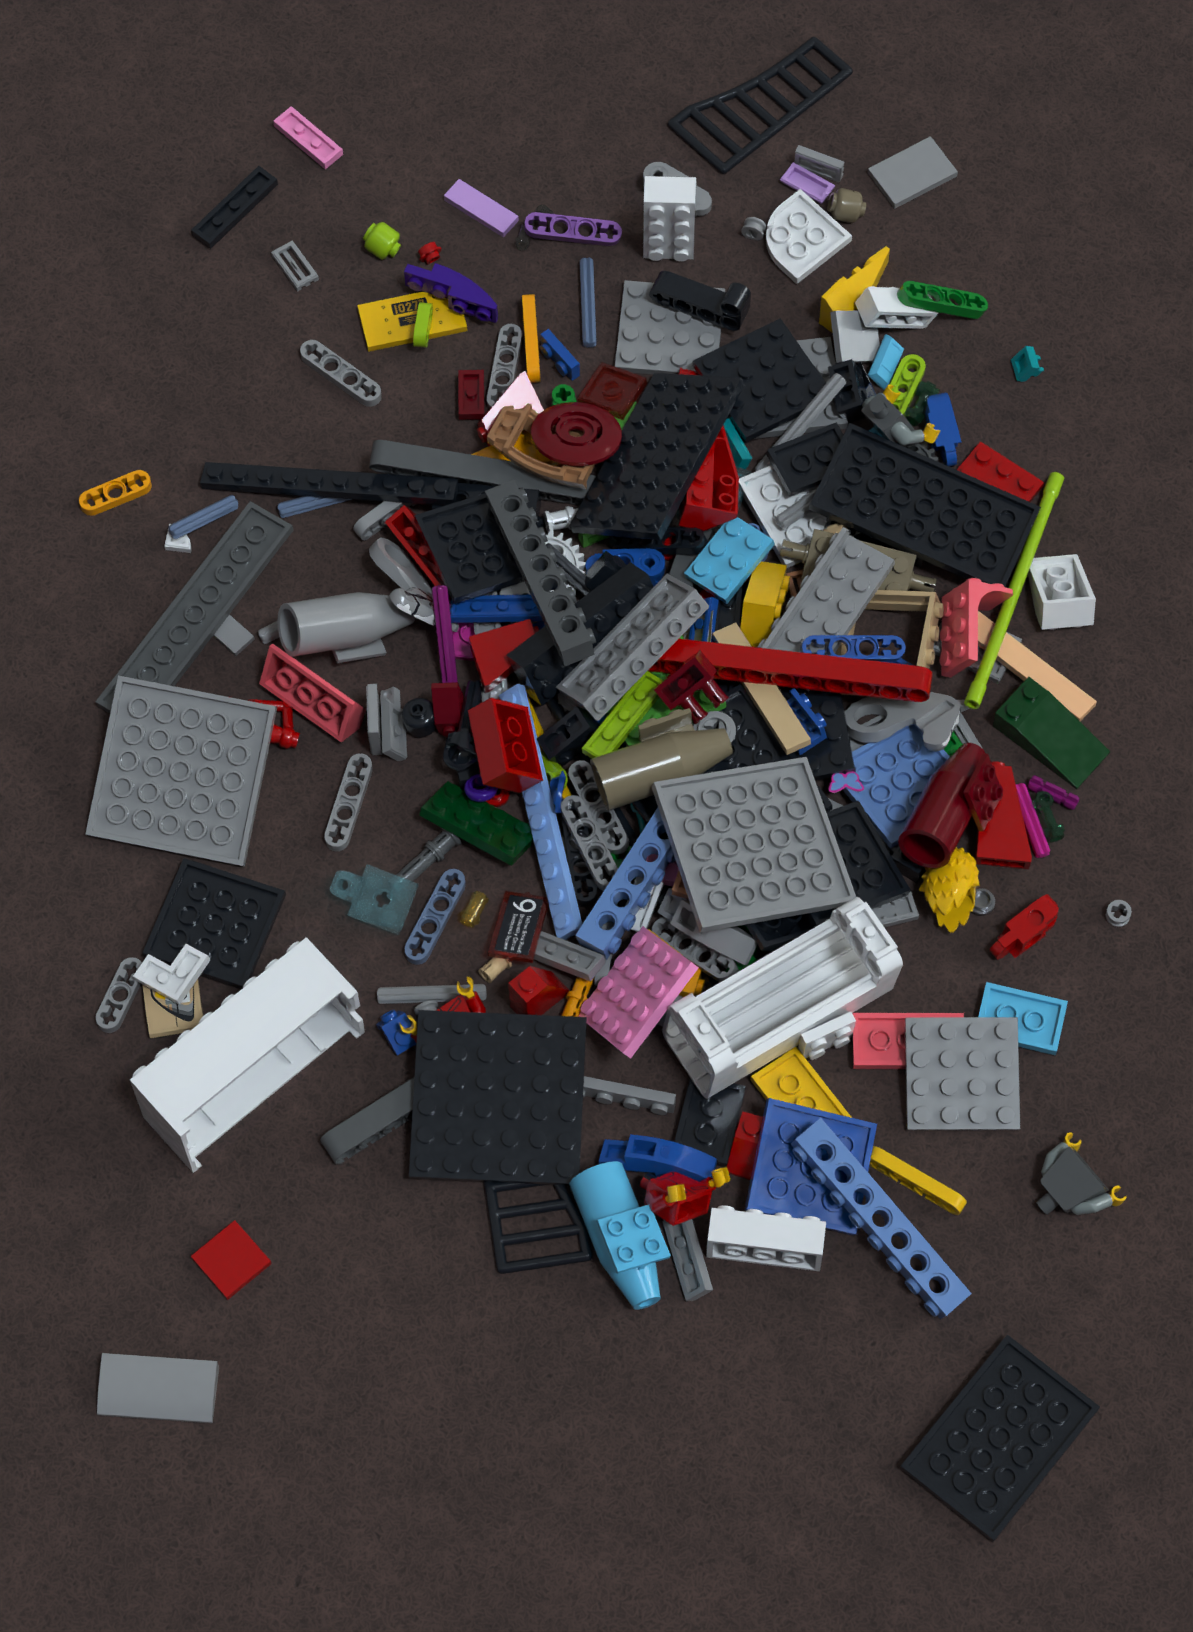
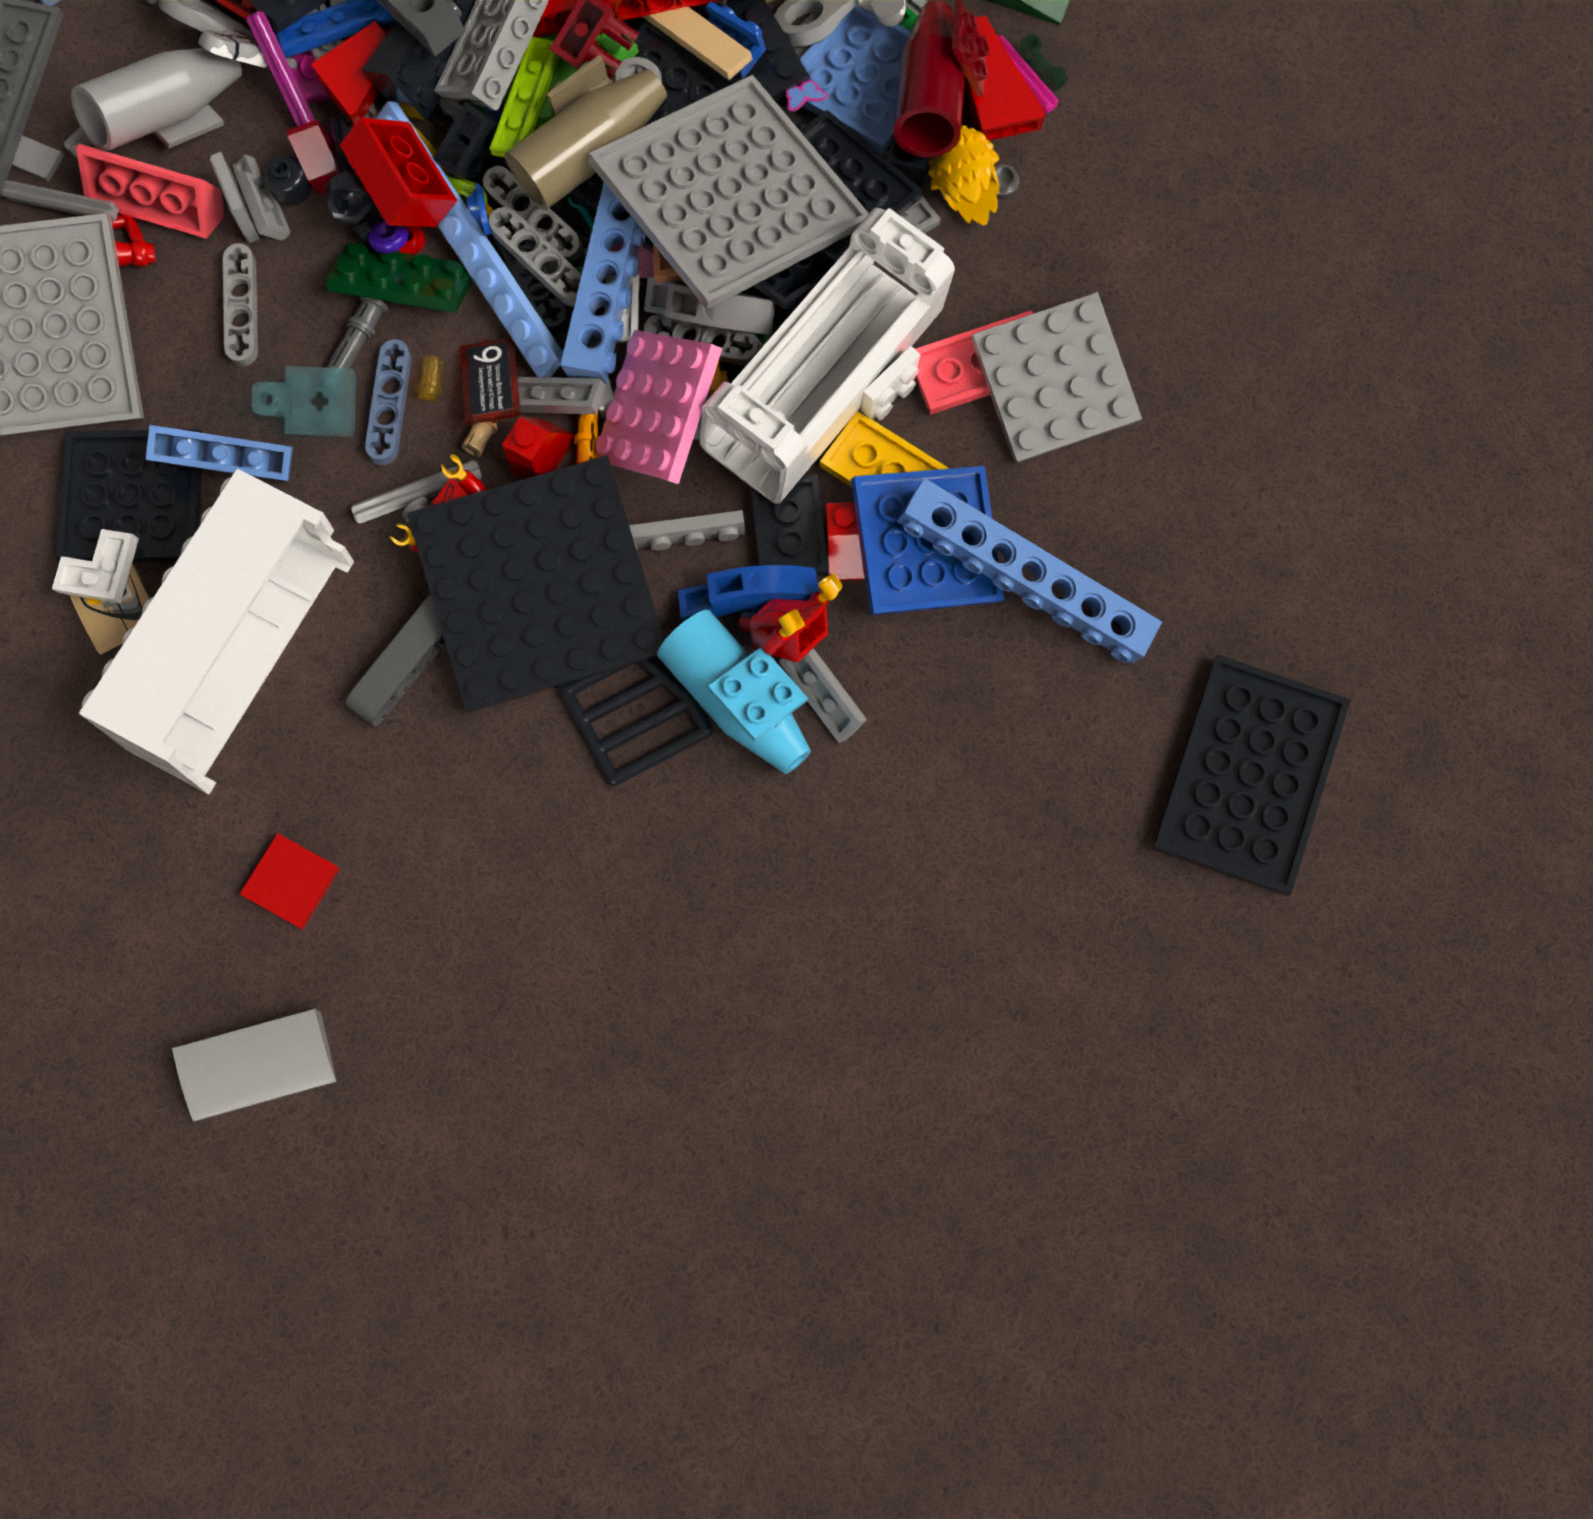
camera: 20 degrees left, 10 degrees up
(116, 984) = (33, 638): light grey beam -> none
(240, 676) = (57, 200): none -> light grey axle
(294, 915) = (219, 453): none -> medium blue brick
(395, 1036) = (394, 556): blue bracket -> none
(766, 1238) = (907, 639): white brick -> none
(917, 1181) = (1051, 516): yellow beam -> none
(1026, 928) = (1065, 192): red piece -> none
(1038, 1015) = (1118, 283): medium azure plate -> none
(1059, 795) = (1056, 38): magenta axle -> none
(1073, 1182) = (1225, 458): dark grey torso -> none
(1122, 920) = (1167, 144): light grey bush -> none

